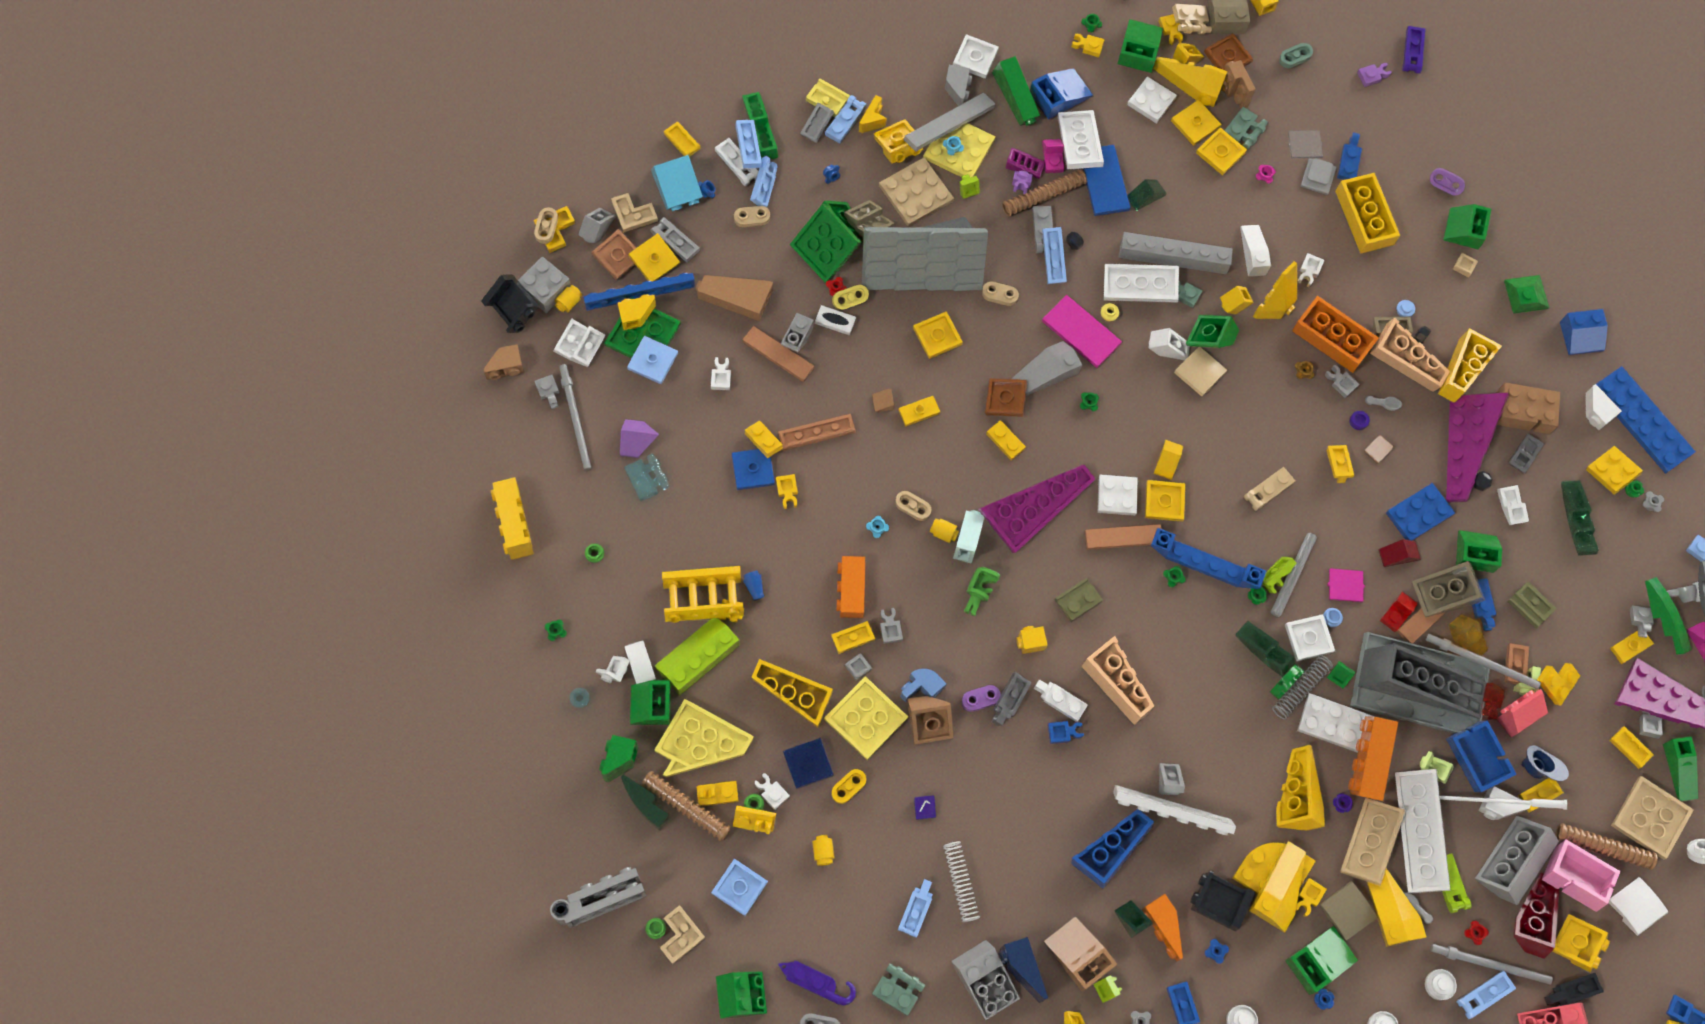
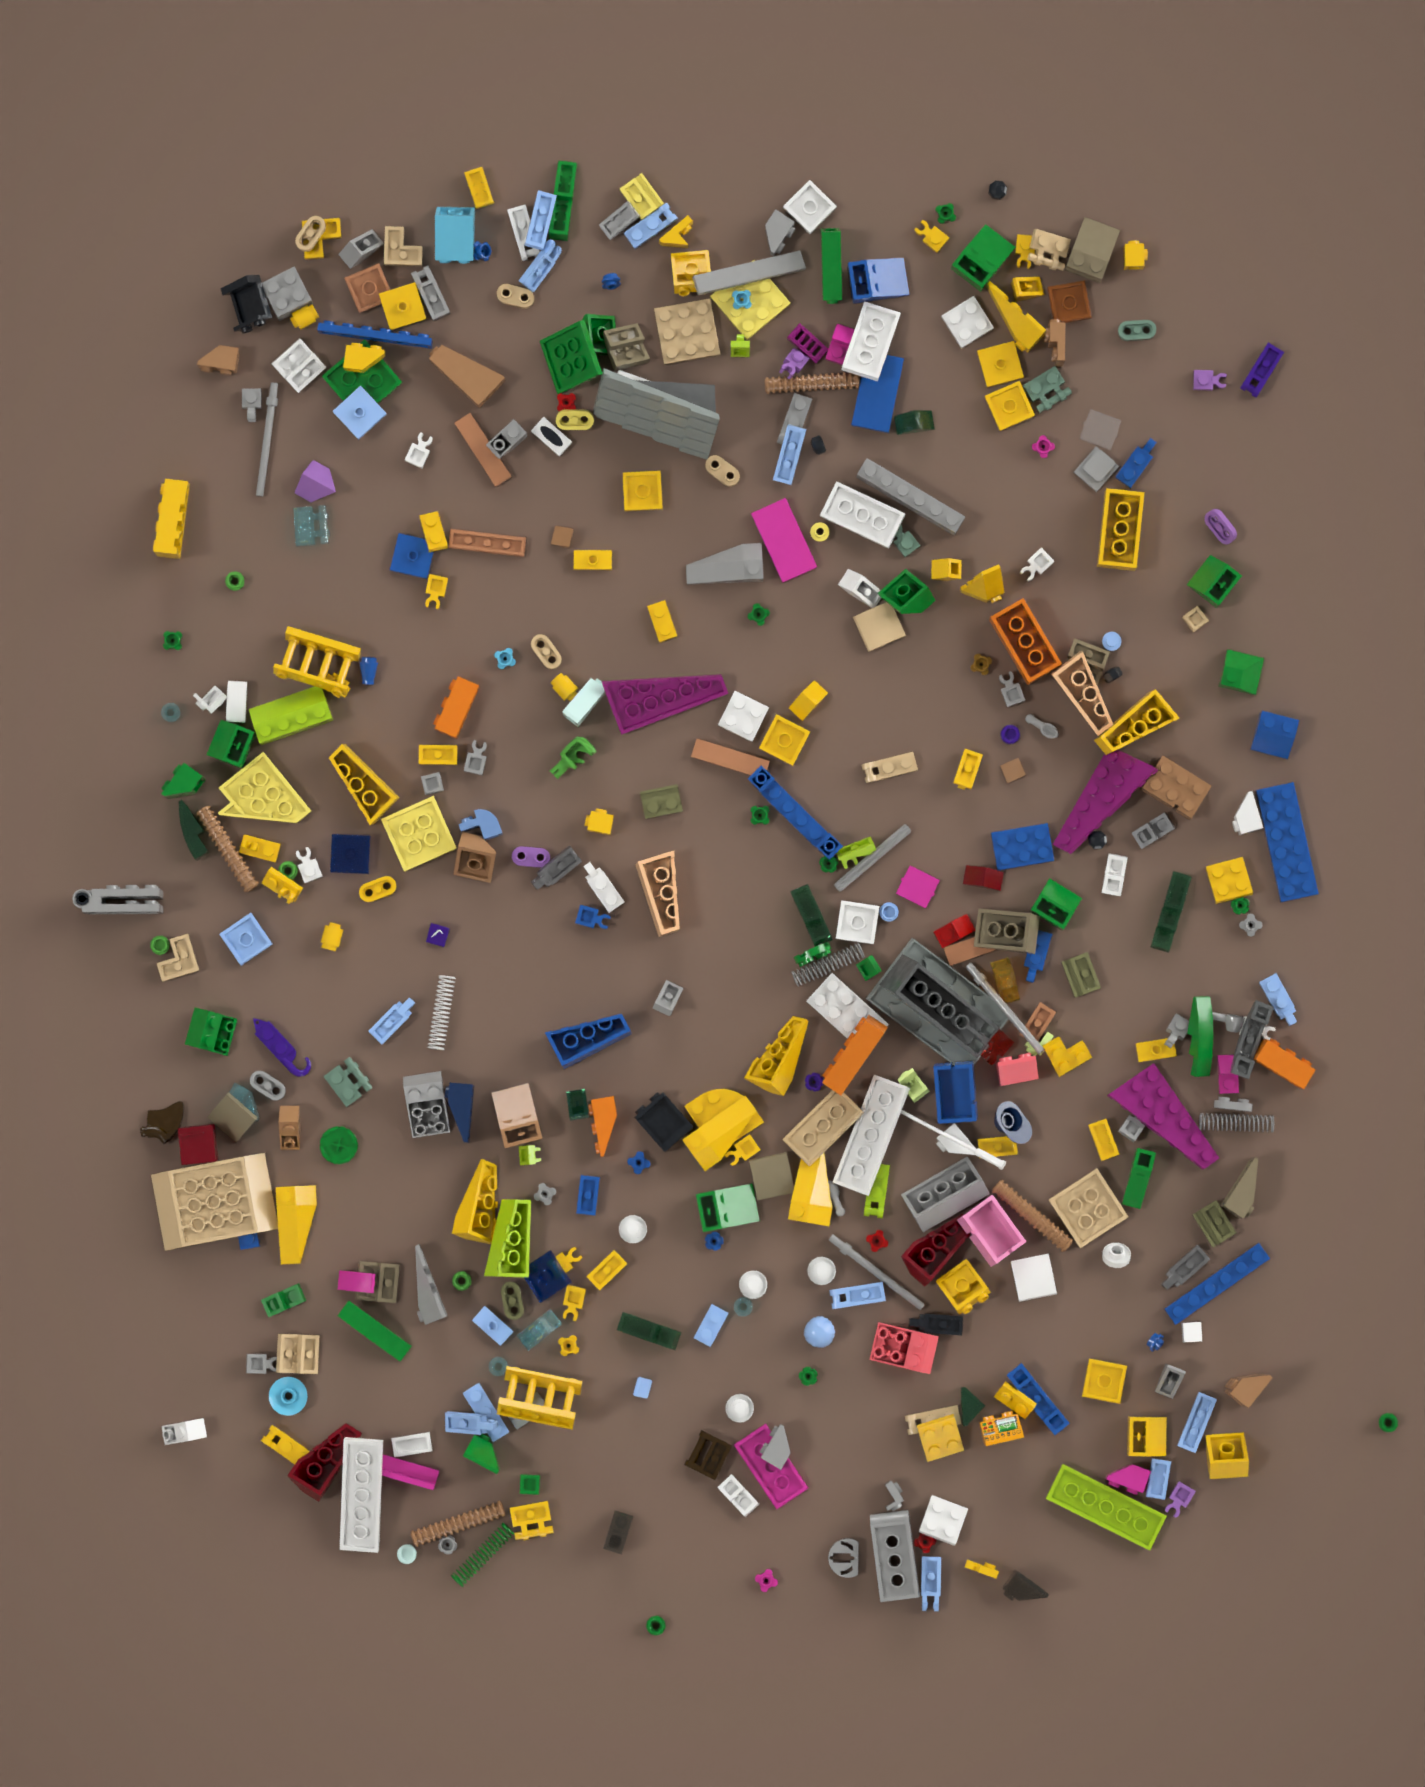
camera: 25 degrees right, 15 degrees up
(1006, 397) = (680, 579): dark orange tile -> none
(1181, 812) = (655, 1026): white plate -> none
(1255, 251) = (992, 522): white slope -> none

